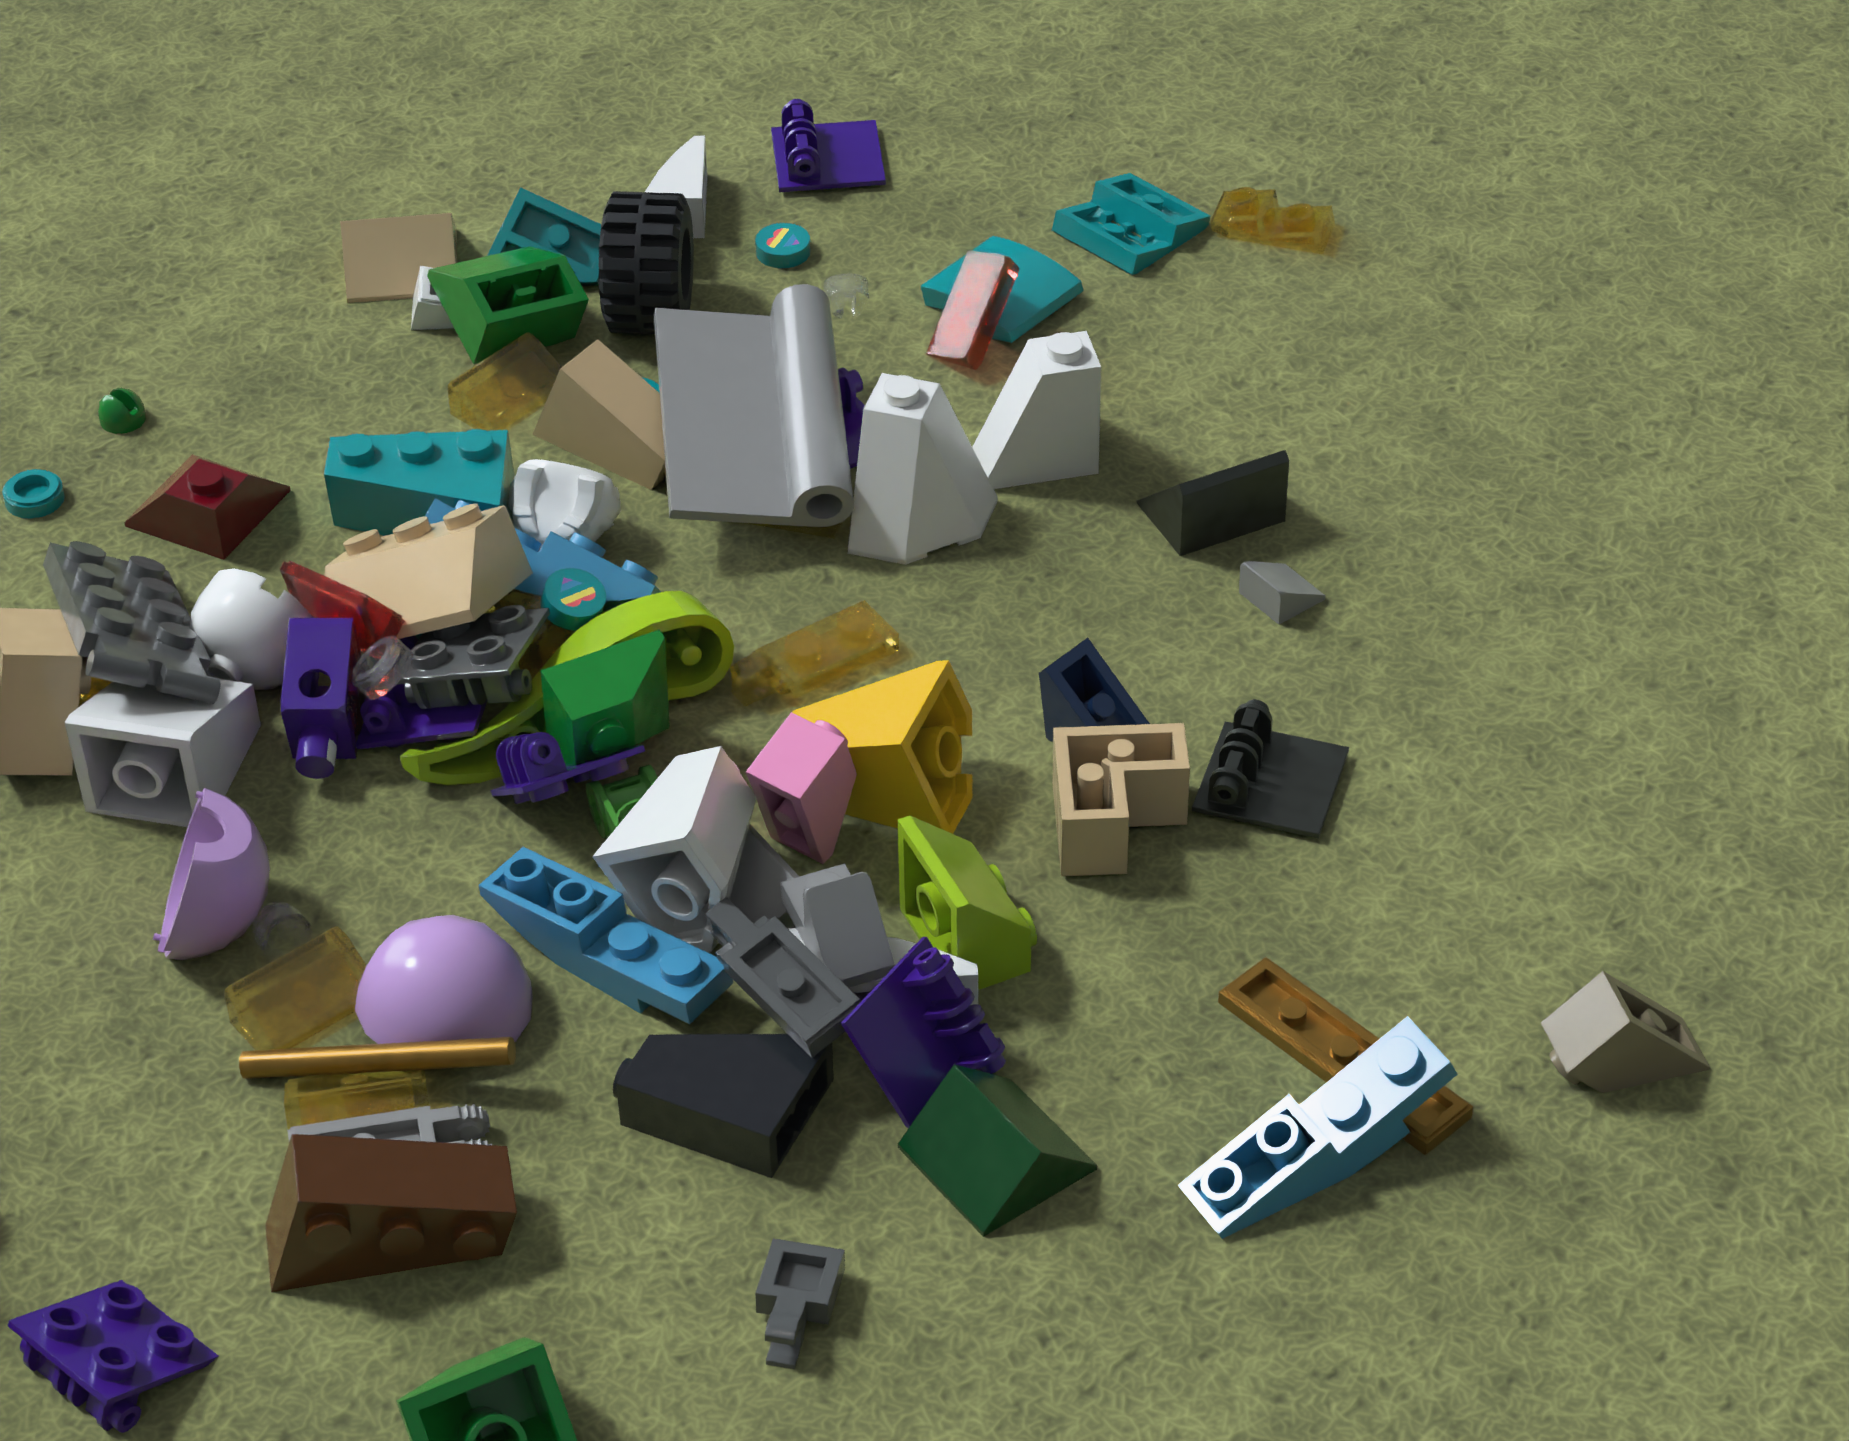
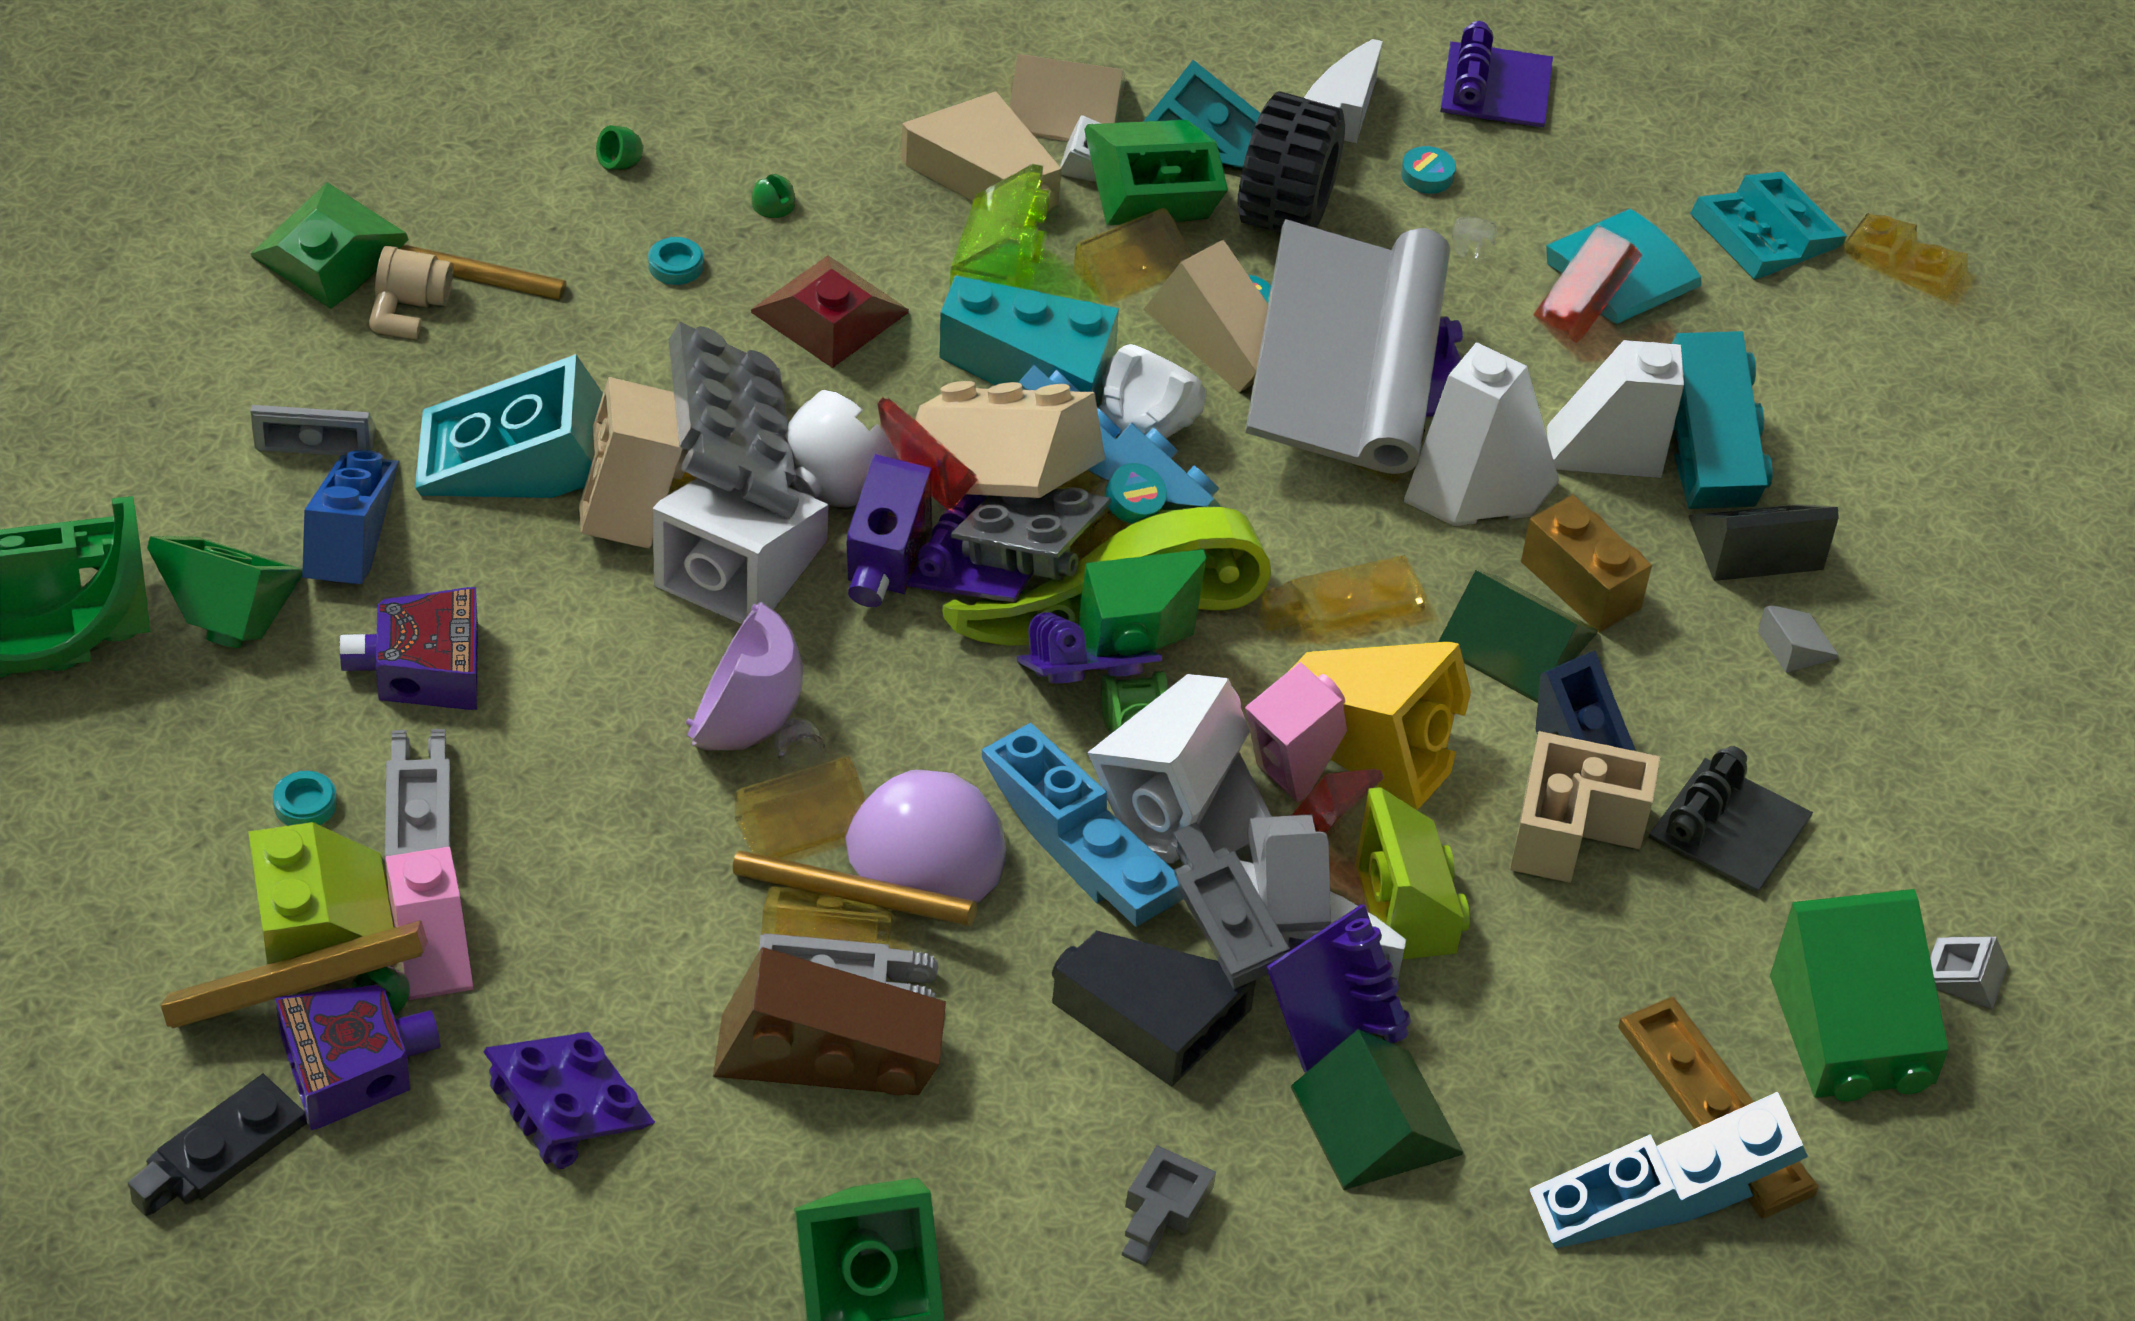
camera: 10 degrees right, 5 degrees up
(330, 326) = (976, 147): none -> tan slope
(370, 385) = (1004, 232): none -> clear neon green slope
(381, 667) = (946, 520): clear tile -> none
(867, 838) = (1337, 798): none -> clear red slope
(998, 648) = (1513, 633): none -> dark green slope
(1049, 565) = (1586, 563): none -> pearl gold brick
(1144, 406) = (1719, 423): none -> teal wedge
(1456, 905) = (1861, 994): none -> green slope
(1550, 858) = (1969, 968): none -> light grey slope
(1619, 1038) = (1973, 1159): dark tan slope -> none

